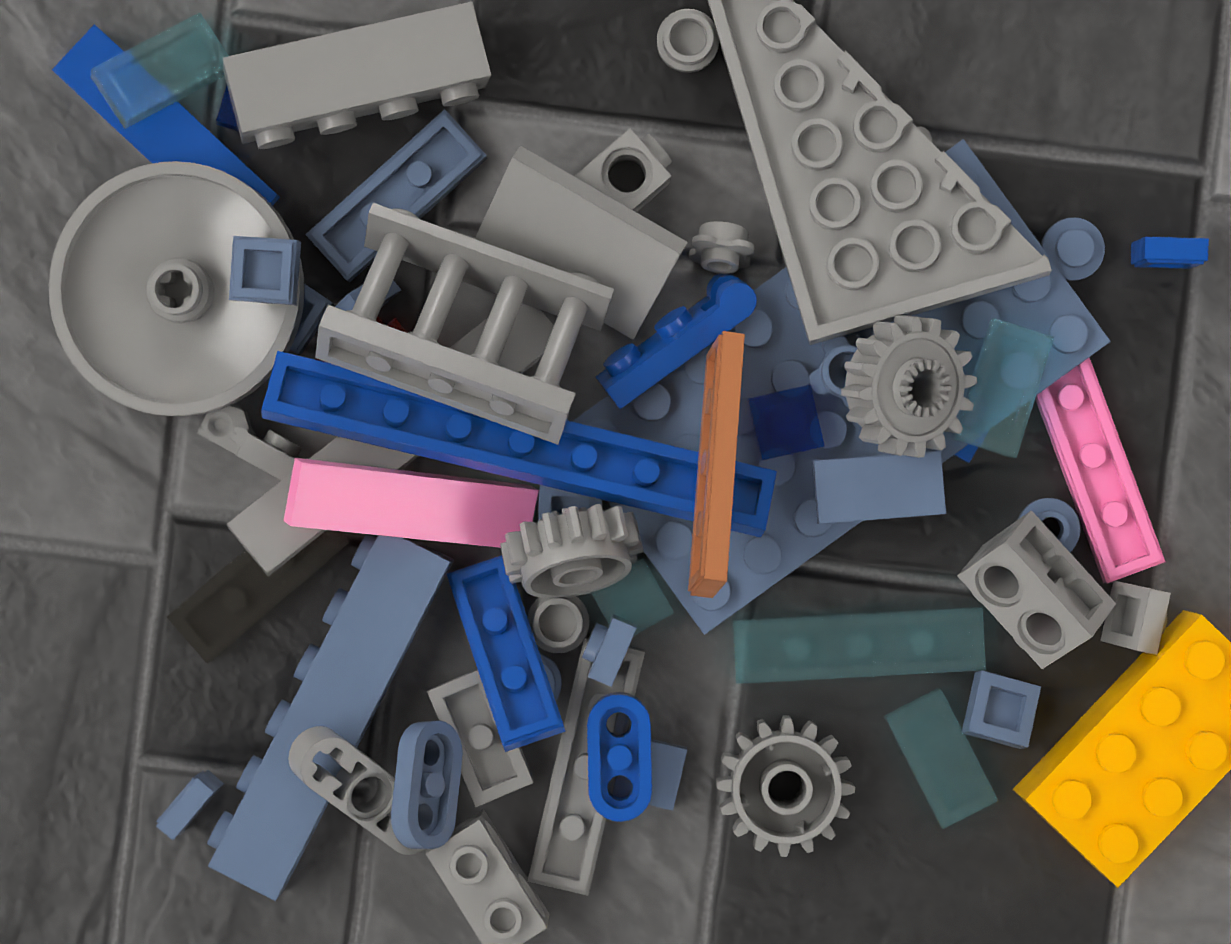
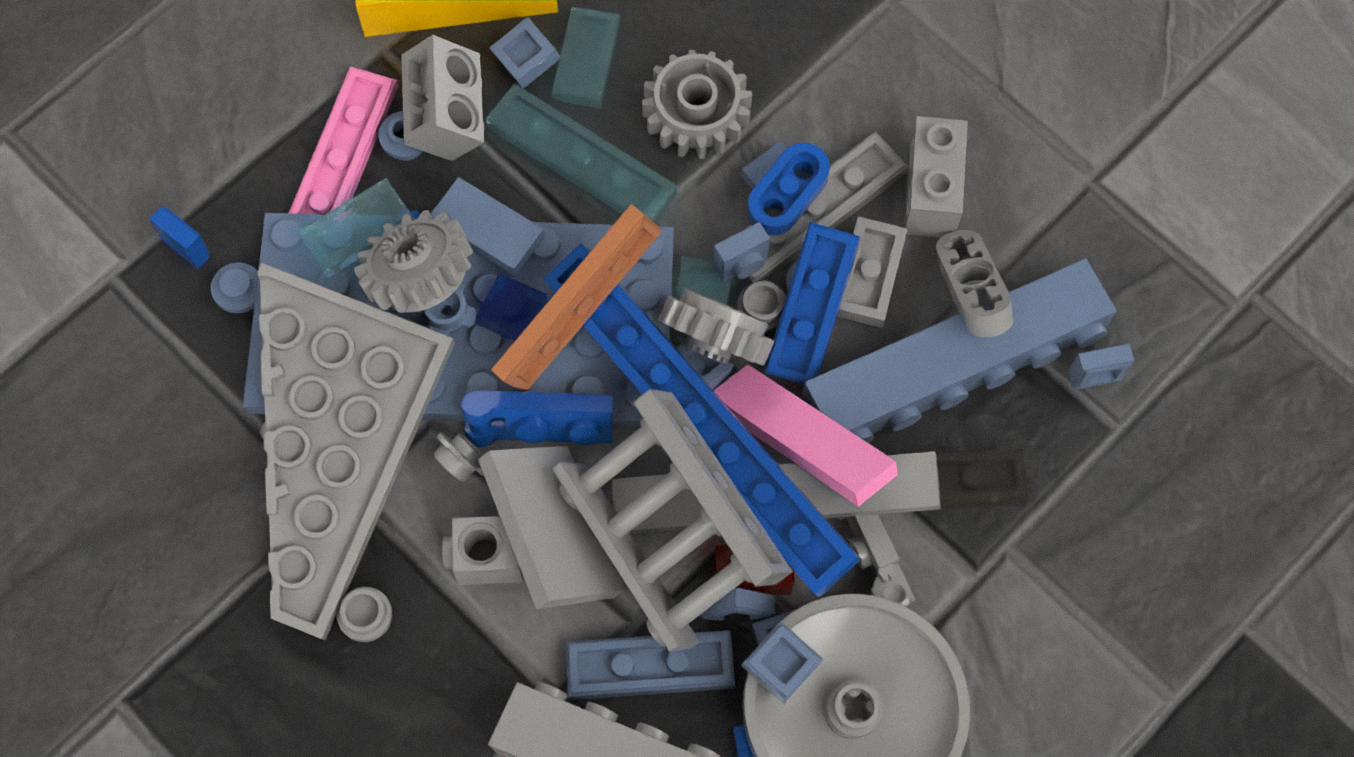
camera: 145 degrees left, 20 degrees down
(426, 785) = (929, 254): sand blue plate -> none
(1137, 617) = (391, 40): light grey plate -> none

